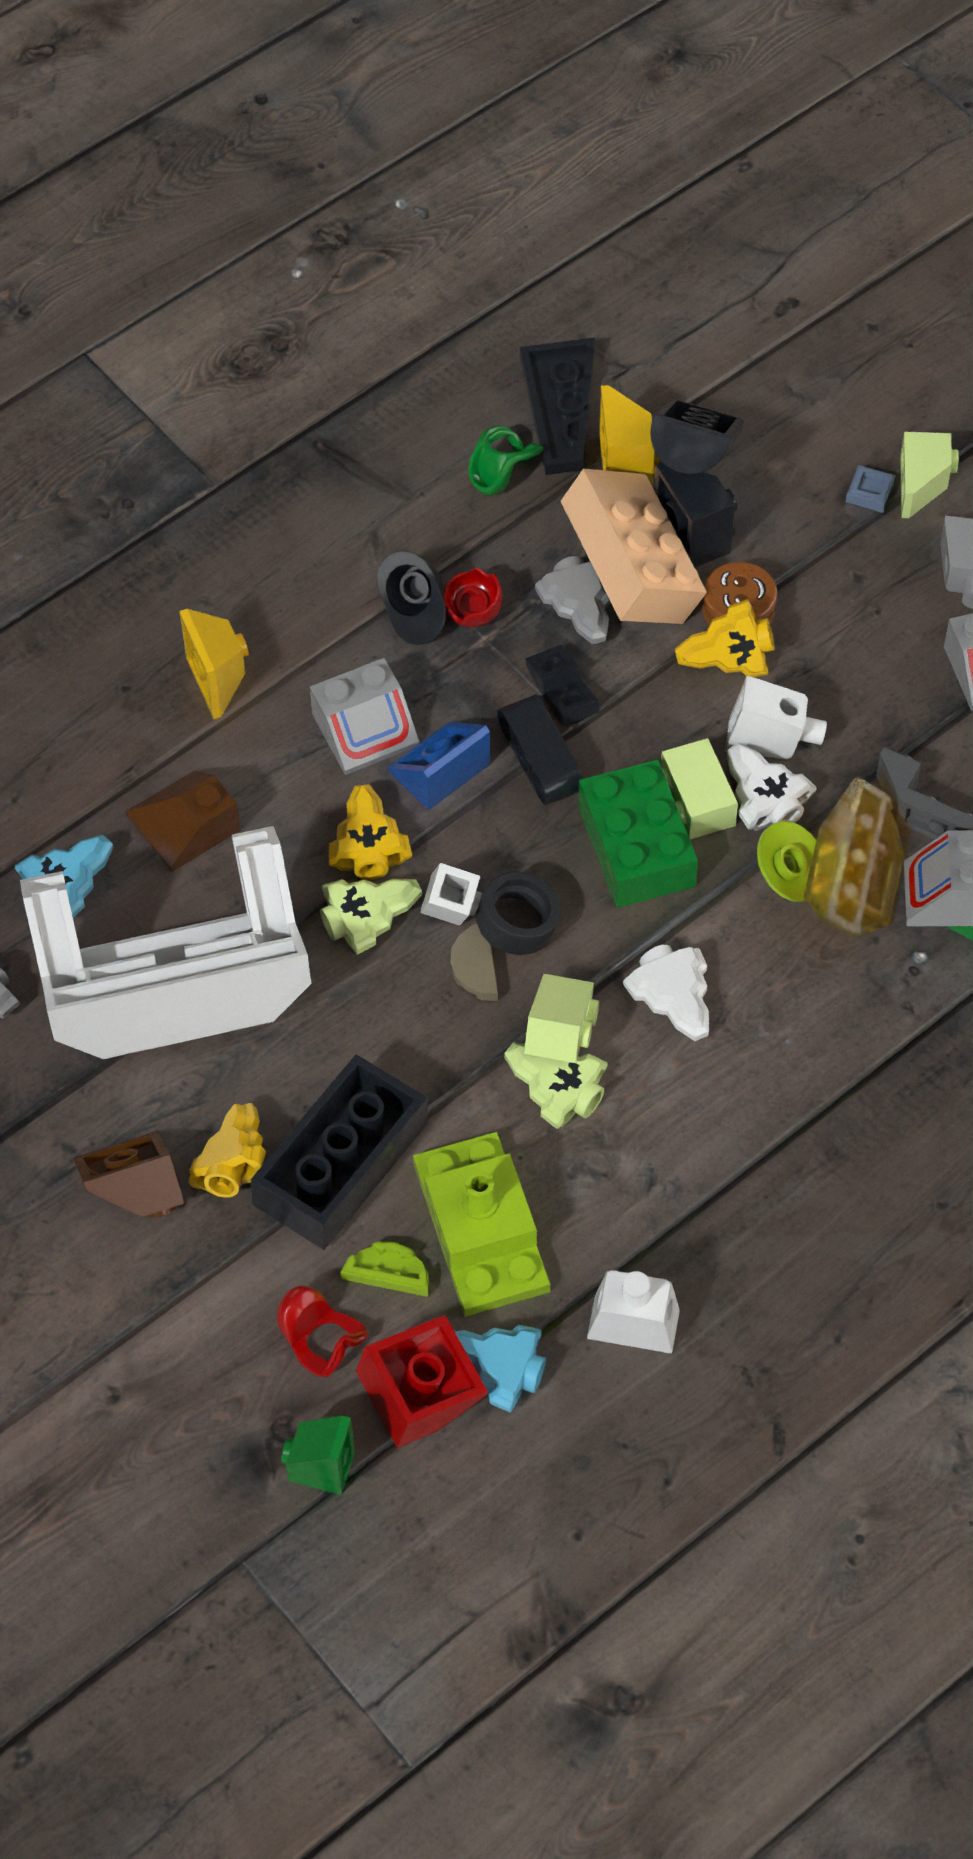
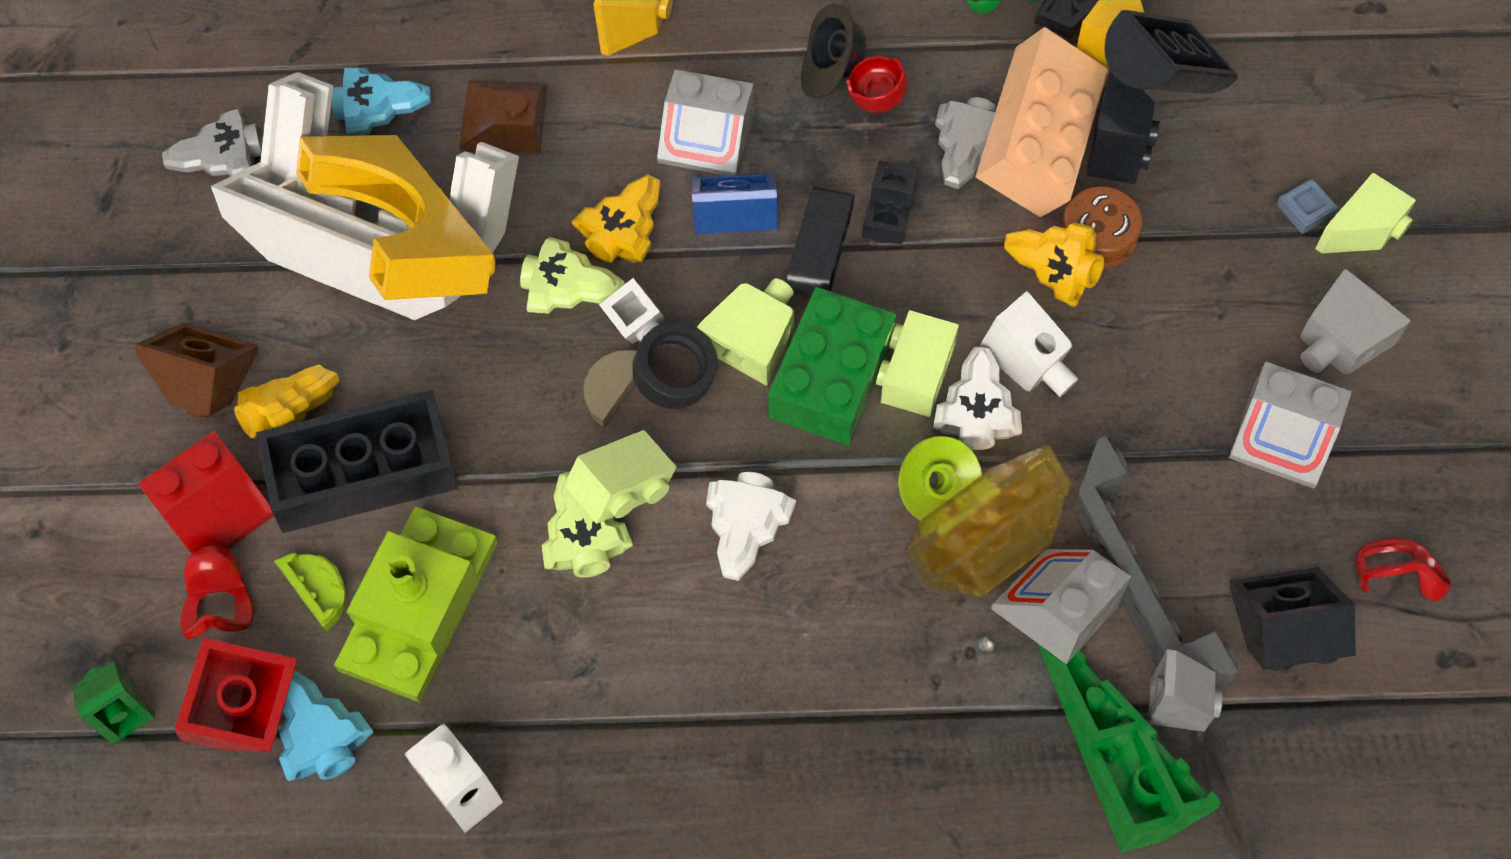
camera: 40 degrees right, 5 degrees up
(242, 1264) = (207, 496): none -> red slope
(292, 933) = (440, 249): none -> yellow arch
(553, 845) = (752, 328): none -> yellowish green torso

